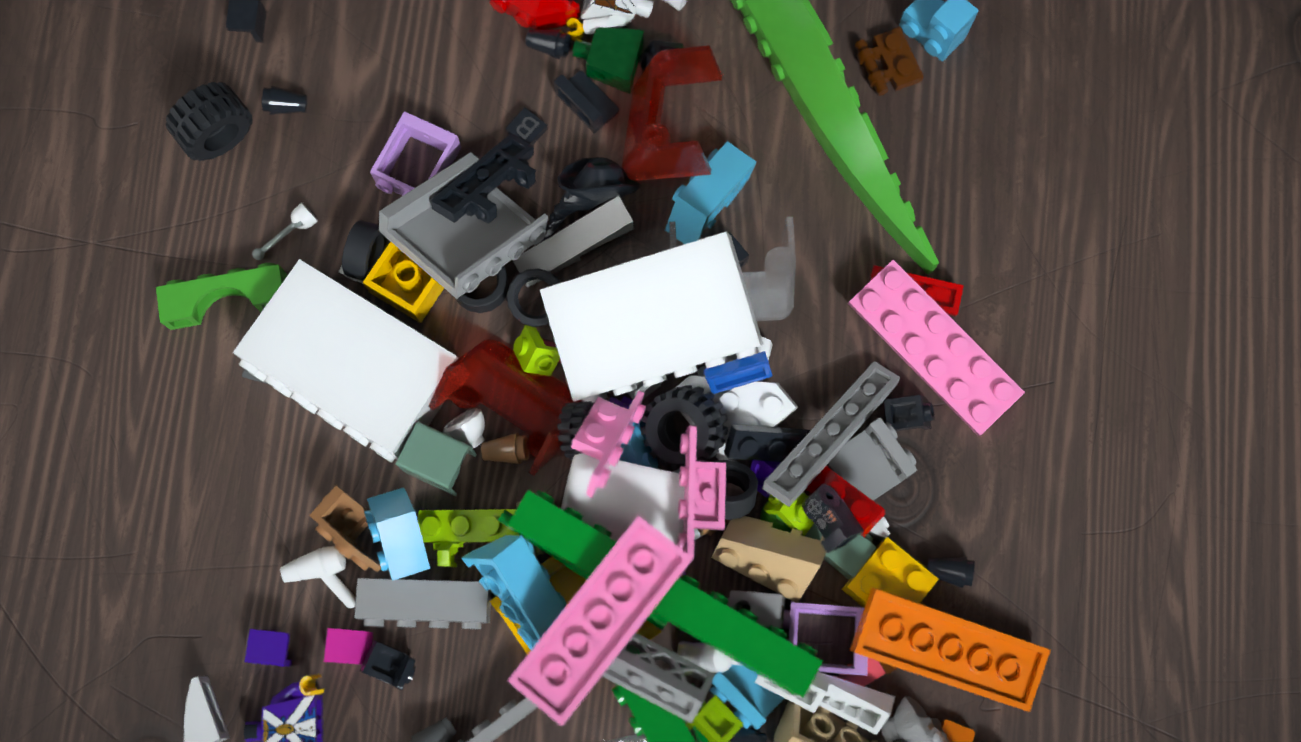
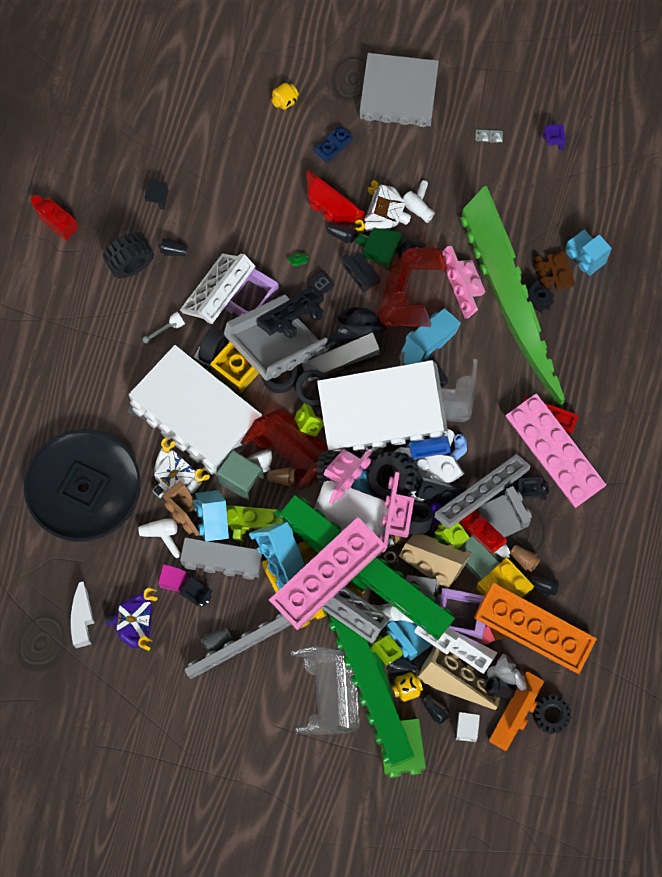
camera: 10 degrees right, 5 degrees down
(86, 75) = (54, 217): none -> red brick
(134, 503) = (76, 459): none -> black dish
(185, 302) = (99, 362): bright green arch -> none
(268, 648) = (125, 572): dark purple panel -> none
(325, 464) = (172, 468): none -> torso
(374, 150) = (226, 286): none -> white fence
(485, 93) = (298, 259): none -> green plant
(703, 575) = (393, 565): none -> dark tan cone
(750, 95) = (464, 281): none -> bright pink bracket
(783, 362) = (460, 447): none -> light blue arm
(831, 517) = (473, 539): black leg -> none
(884, 103) = (538, 303): none -> black brick
(913, 529) = (525, 558): none -> medium nougat cone

